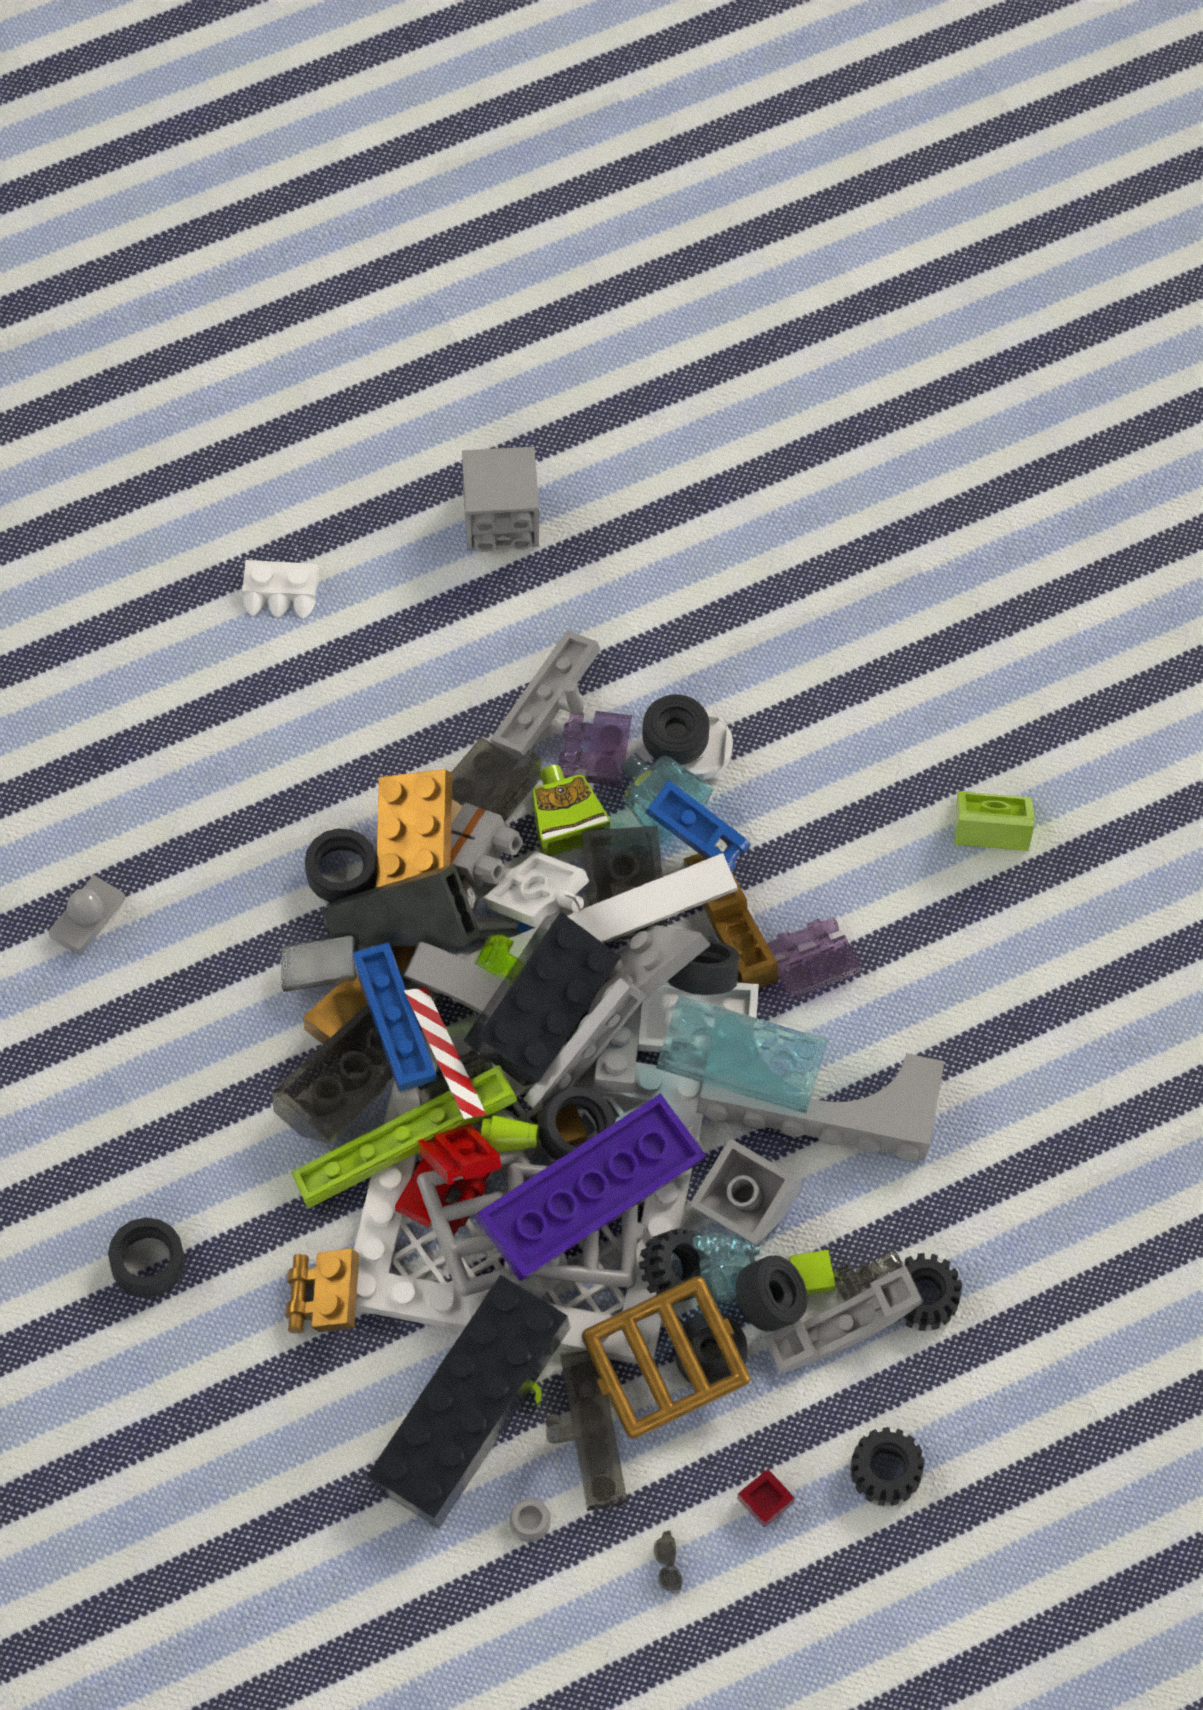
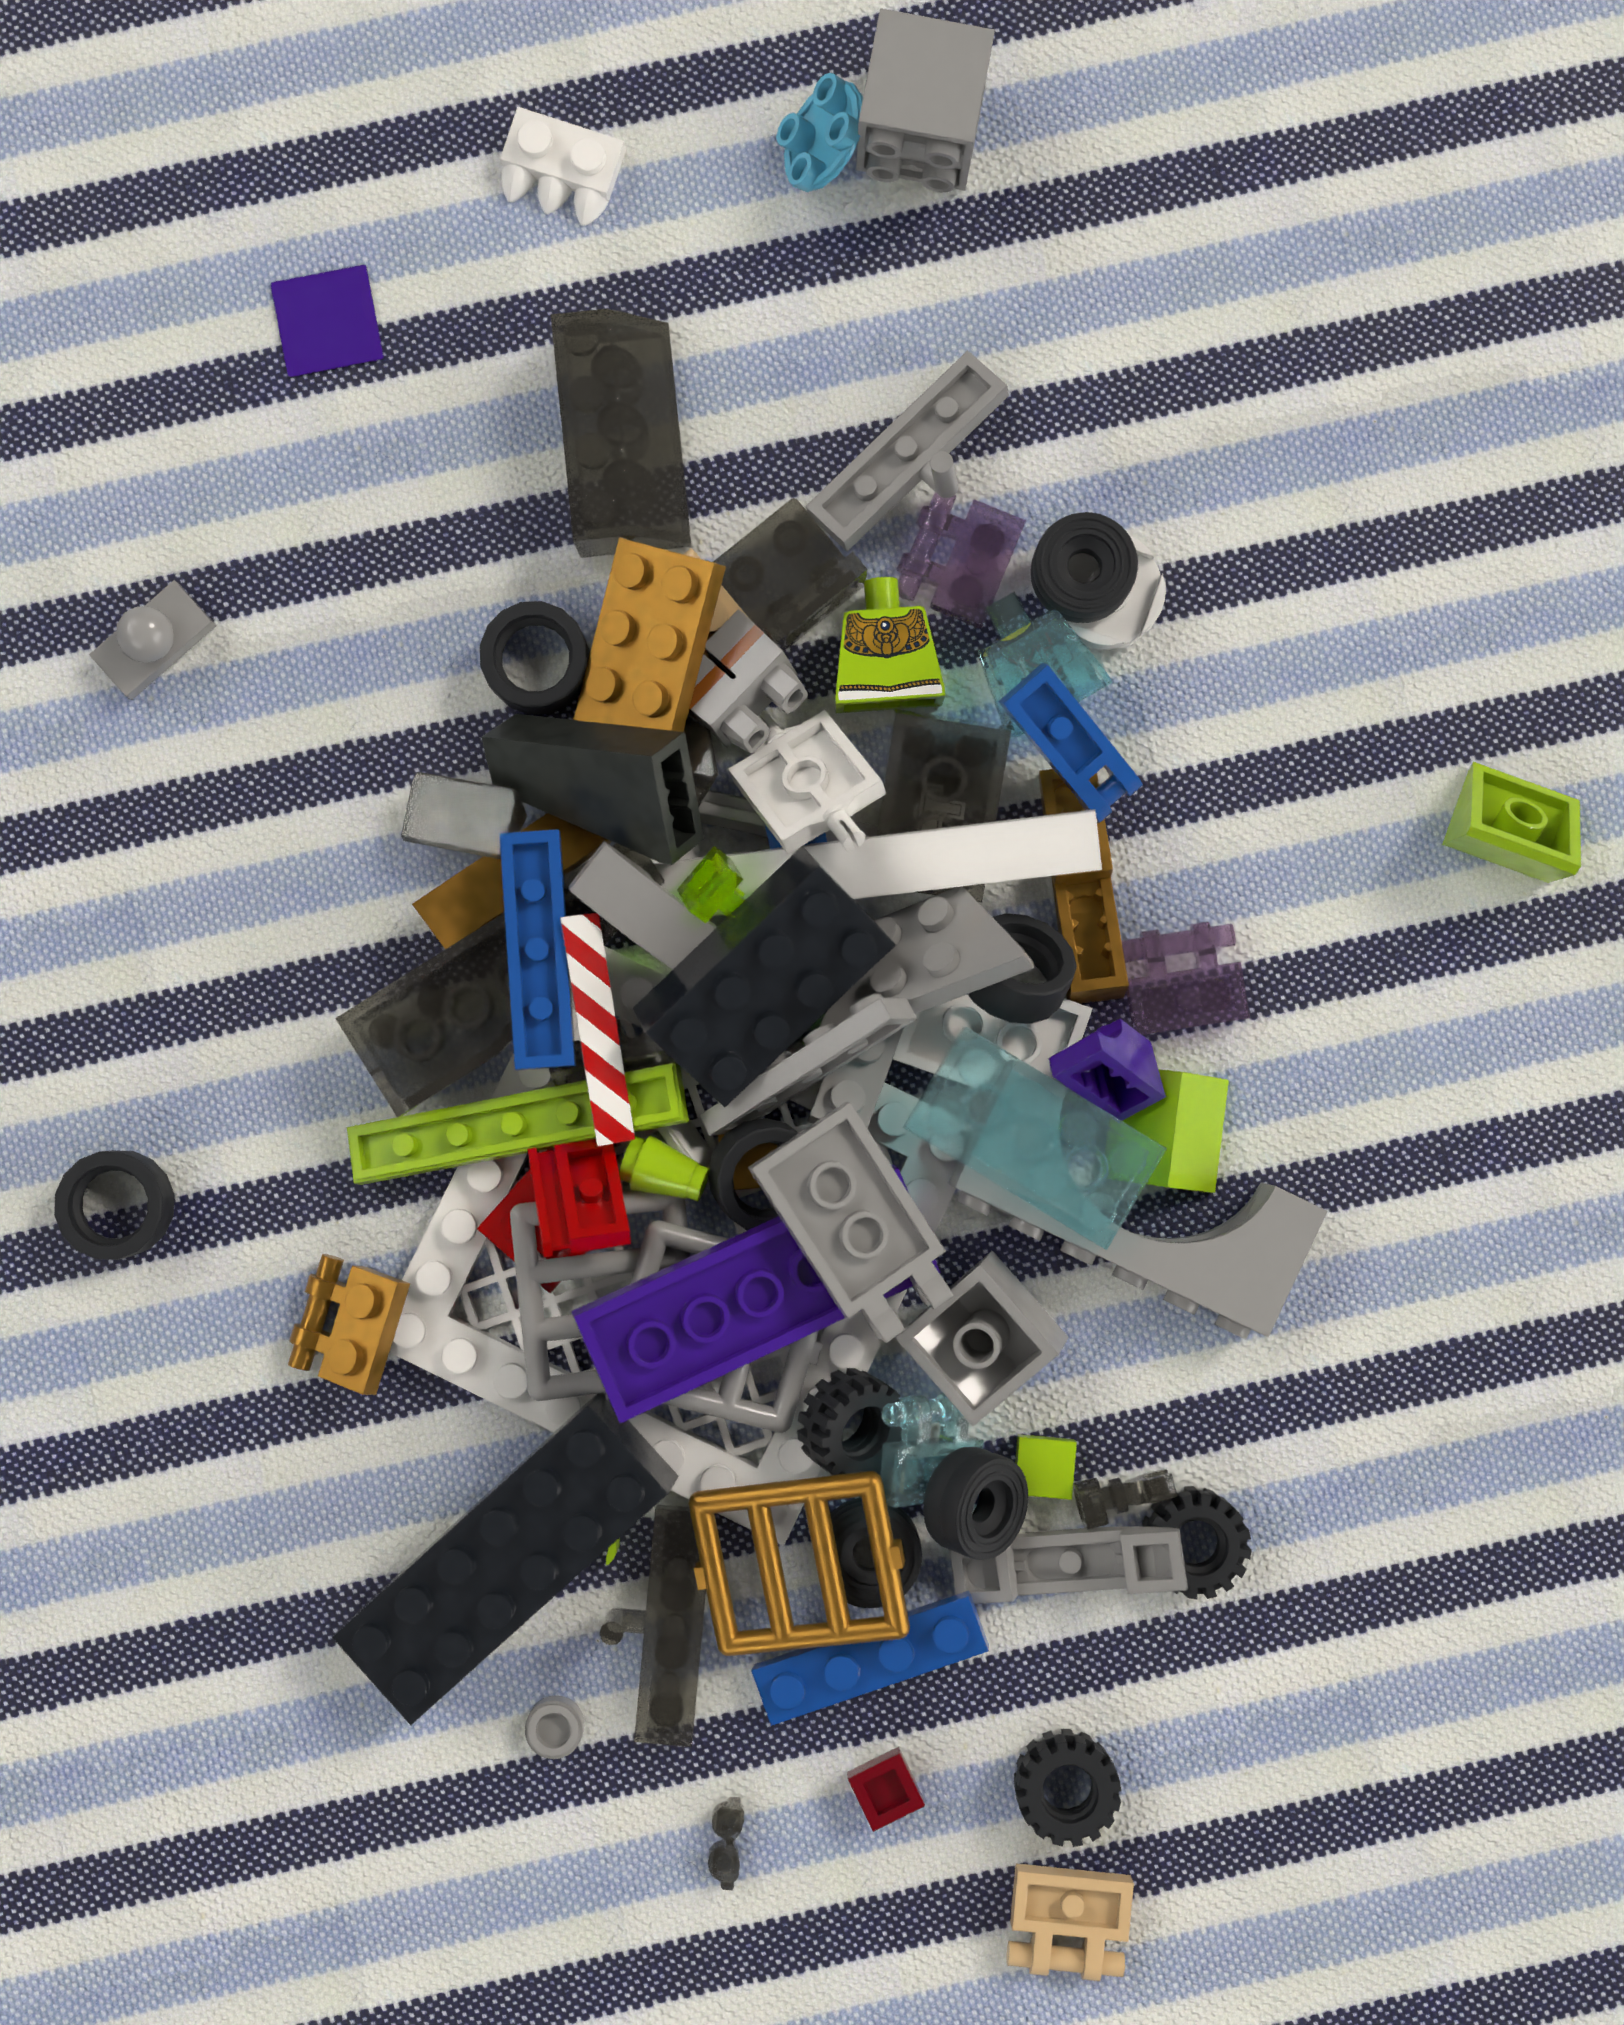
camera: 15 degrees right, 25 degrees up
(152, 708) = (327, 320): none -> dark purple sticker
(357, 722) = (620, 431): none -> clear smoke slope
(442, 531) = (821, 134): none -> medium azure dish
(641, 1125) = (852, 1218): none -> light grey tile
(730, 1417) = (831, 1674): none -> blue plate
(777, 1004) = (1111, 1070): none -> dark purple arch
(846, 1052) = (1189, 1127): none -> lime slope
(913, 1541) = (1075, 1905): none -> tan plate

